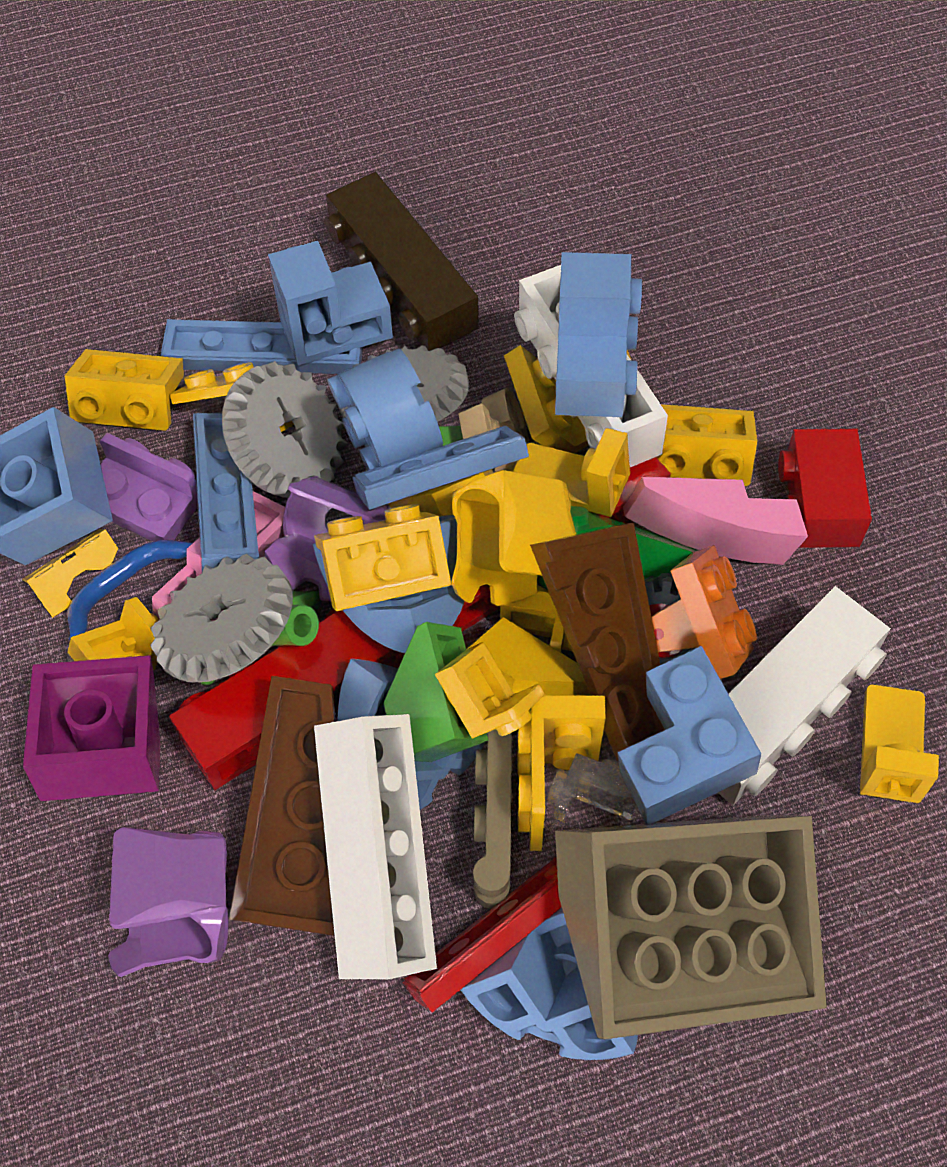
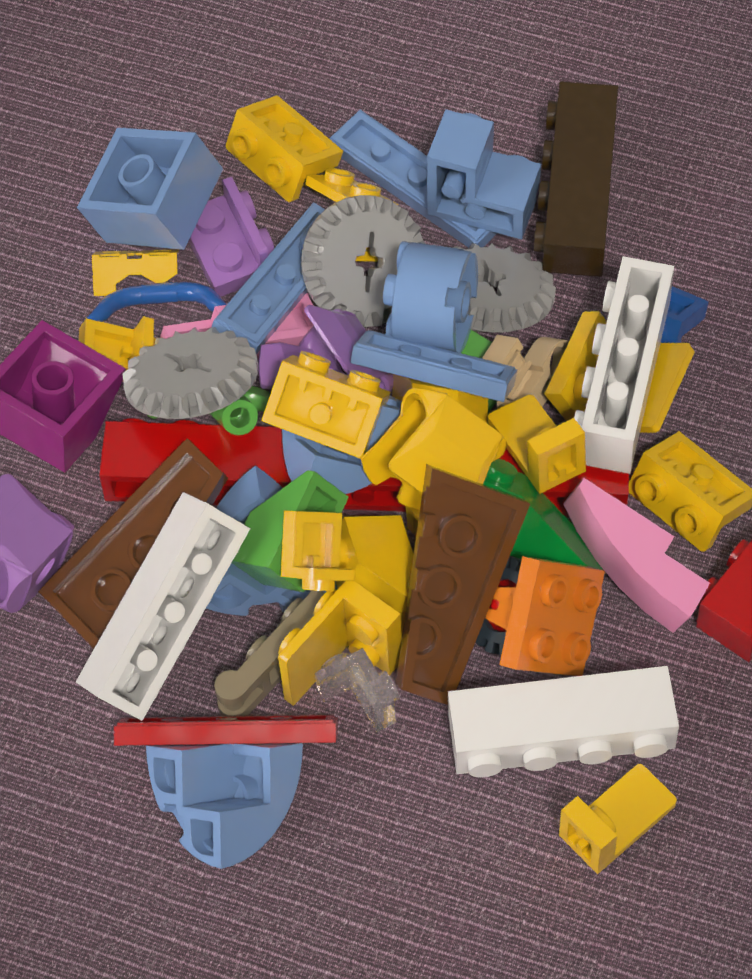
camera: 40 degrees right, 0 degrees up
(596, 334) = (618, 339): medium blue brick -> none
(693, 921) = (338, 816): dark tan slope -> none
(701, 745) = (435, 700): medium blue brick -> none

